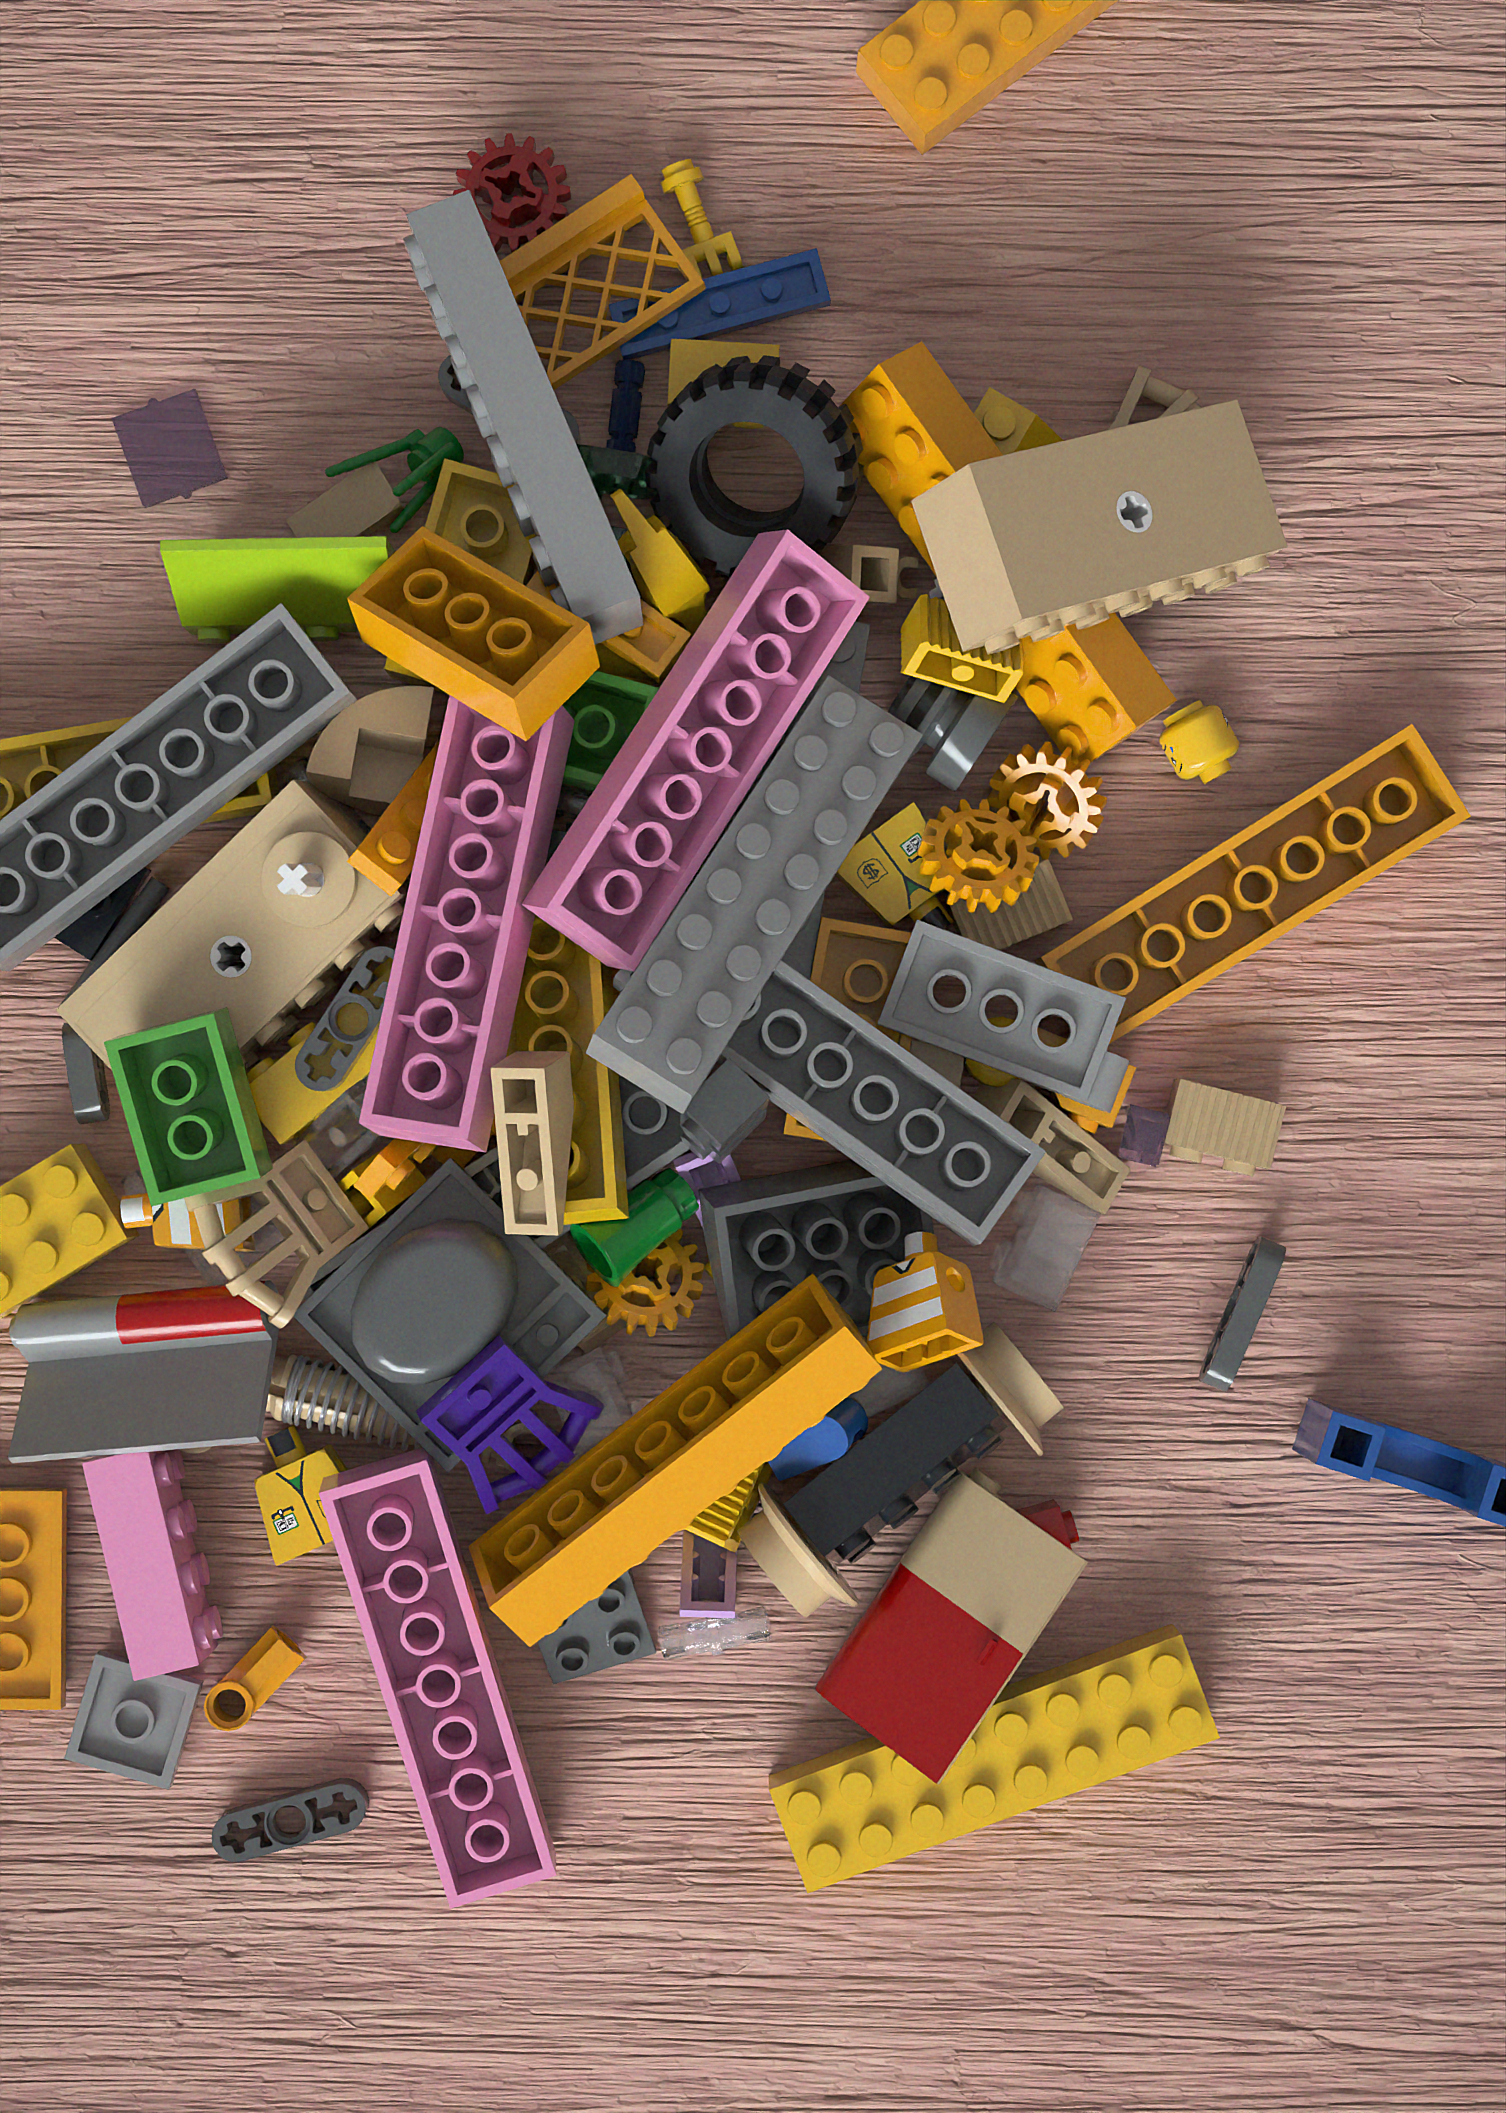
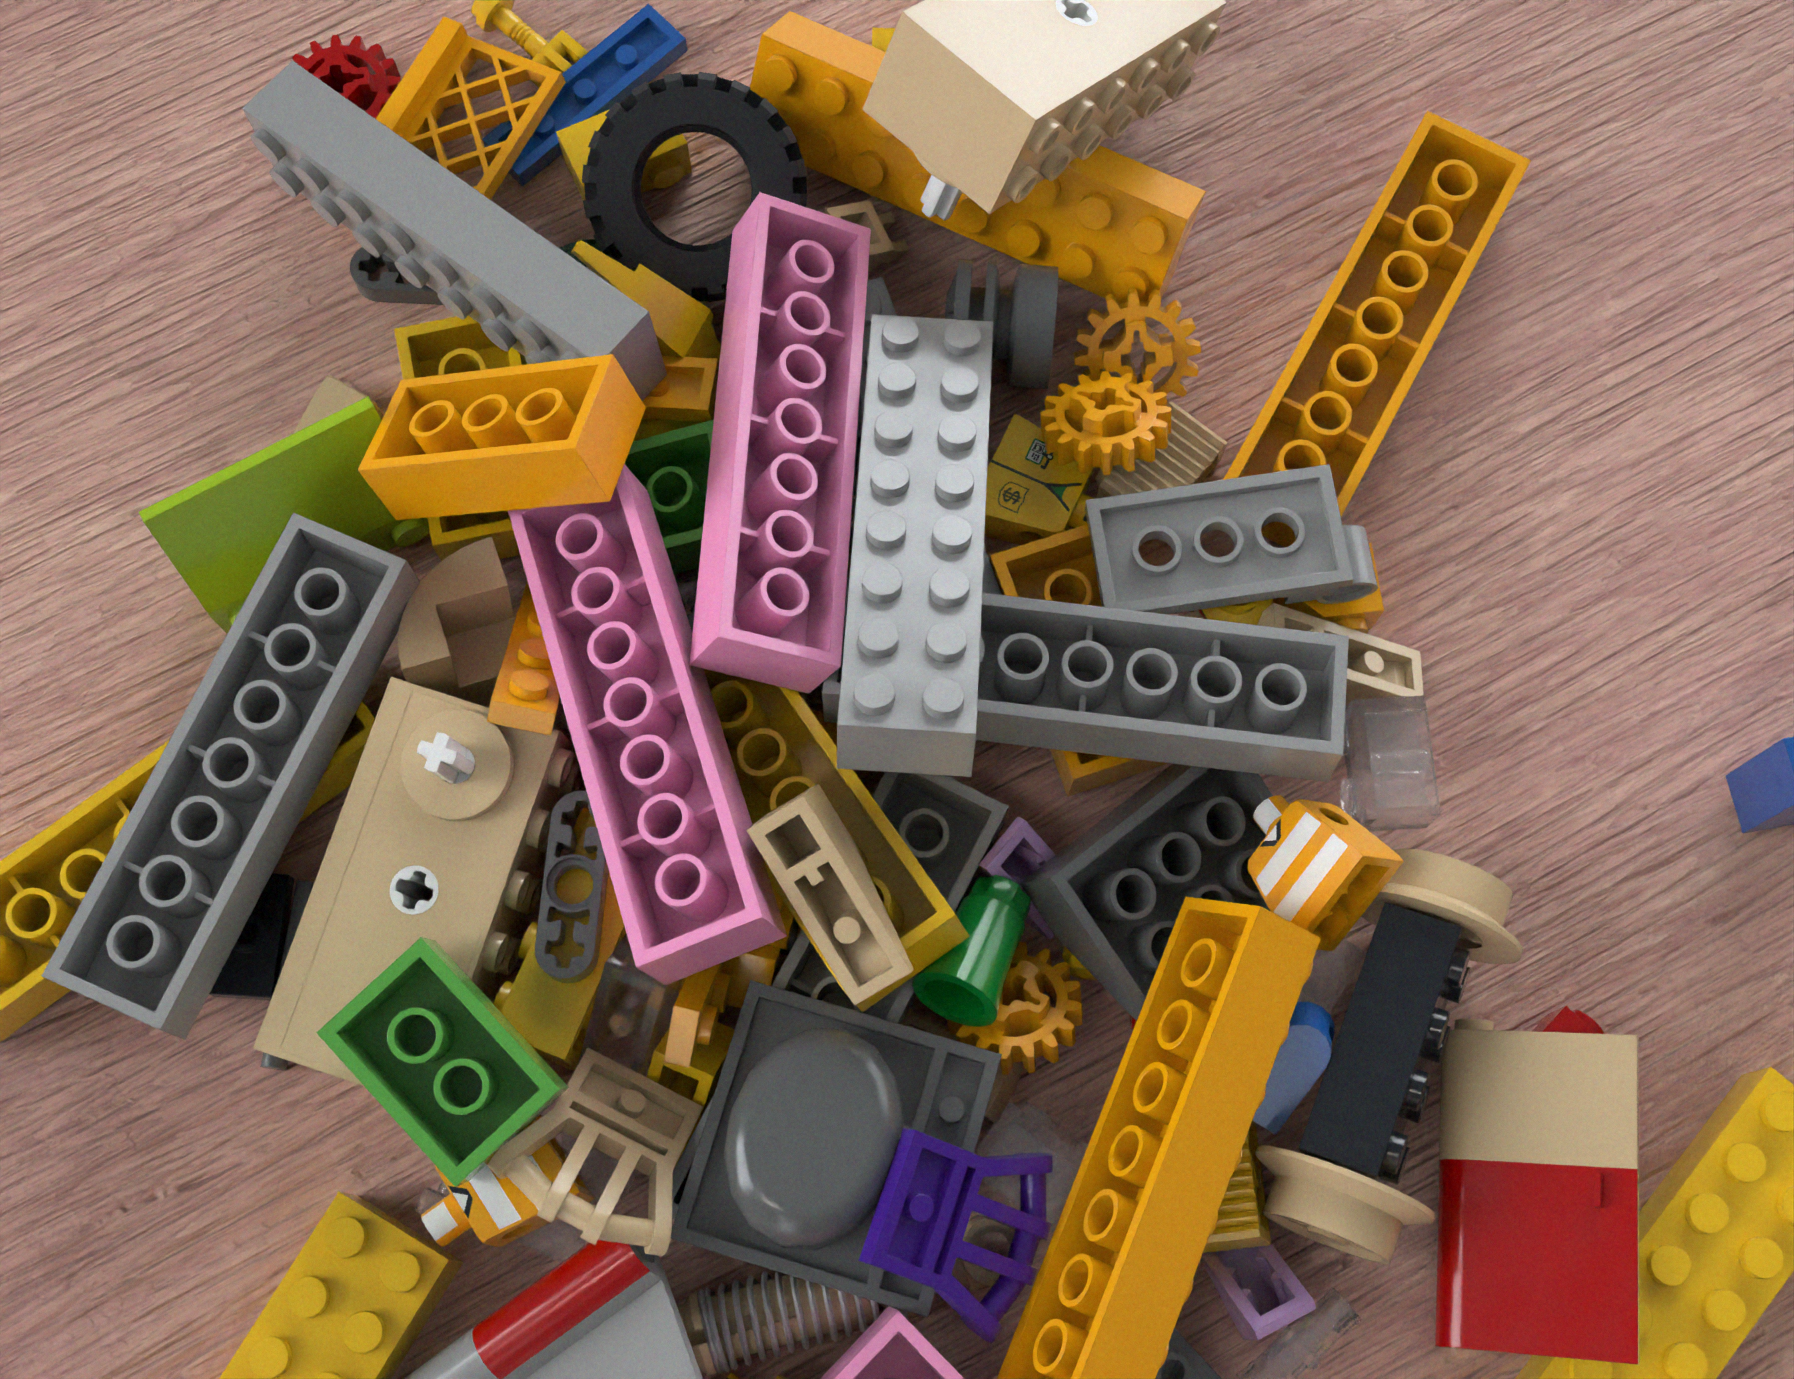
camera: 25 degrees left, 15 degrees down
(85, 1079) = (321, 1115): dark grey beam -> none
(169, 448) = (120, 473): clear purple piece -> none
(424, 462) = (376, 355): green plant -> none
(625, 405) = (542, 210): dark blue axle -> none
(723, 1112) = (1006, 774): dark grey brick -> none
(935, 654) = (967, 242): yellow brick -> none
(1143, 1135) = (1416, 605): clear purple slope -> none
(1199, 742) = (1242, 238): yellow head -> none
(1223, 1126) = (1480, 561): tan brick -> none
(1242, 1313) = (1614, 727): dark grey beam -> none

